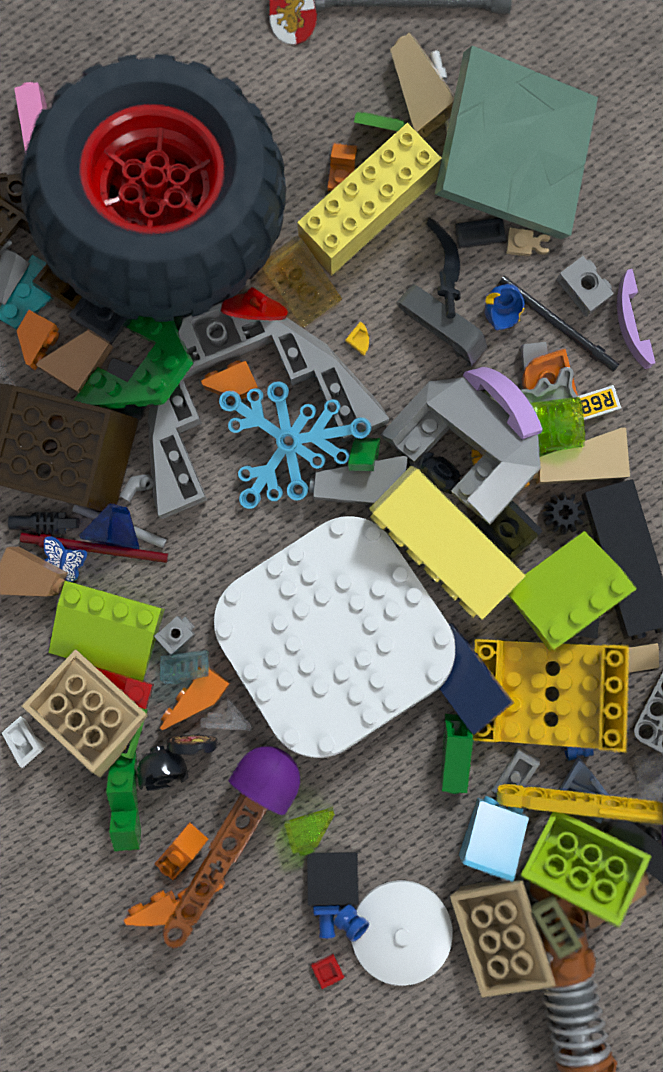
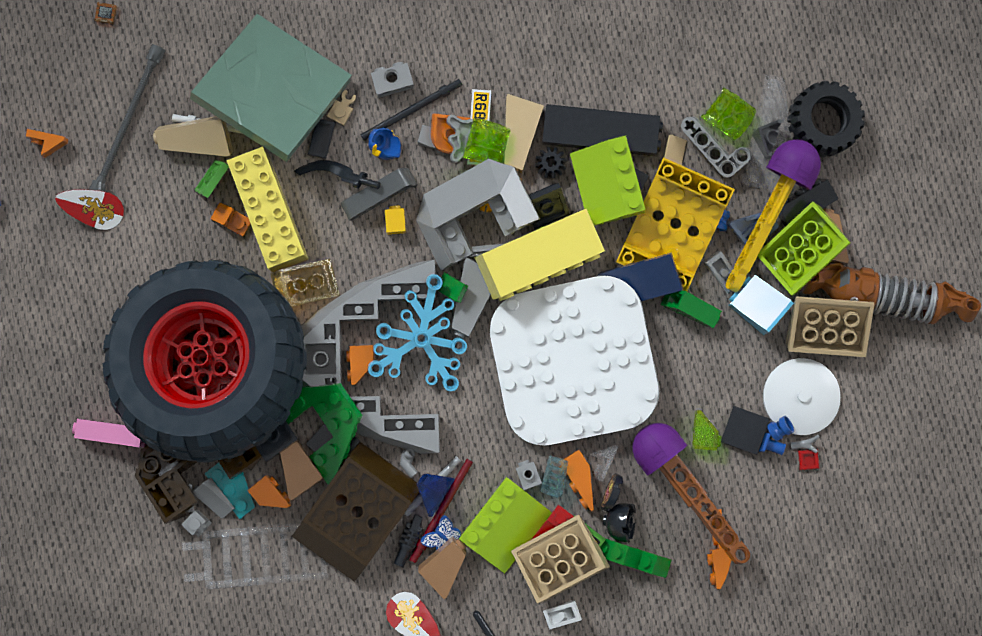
camera: 70 degrees left, 0 degrees up
(181, 851) = (685, 530): orange slope -> none
(254, 306) = (314, 323): red shield -> none
(345, 961) = (805, 444): none -> light grey bar
(359, 339) = (364, 257): yellow tile -> none
(418, 356) = (395, 220): none -> yellow brick
(439, 472) = (487, 239): black tile -> none
(509, 396) = (468, 164): lavender slope -> none
(543, 906) = (818, 289): olive slope -> none
(640, 350) = (455, 59): lavender slope -> none

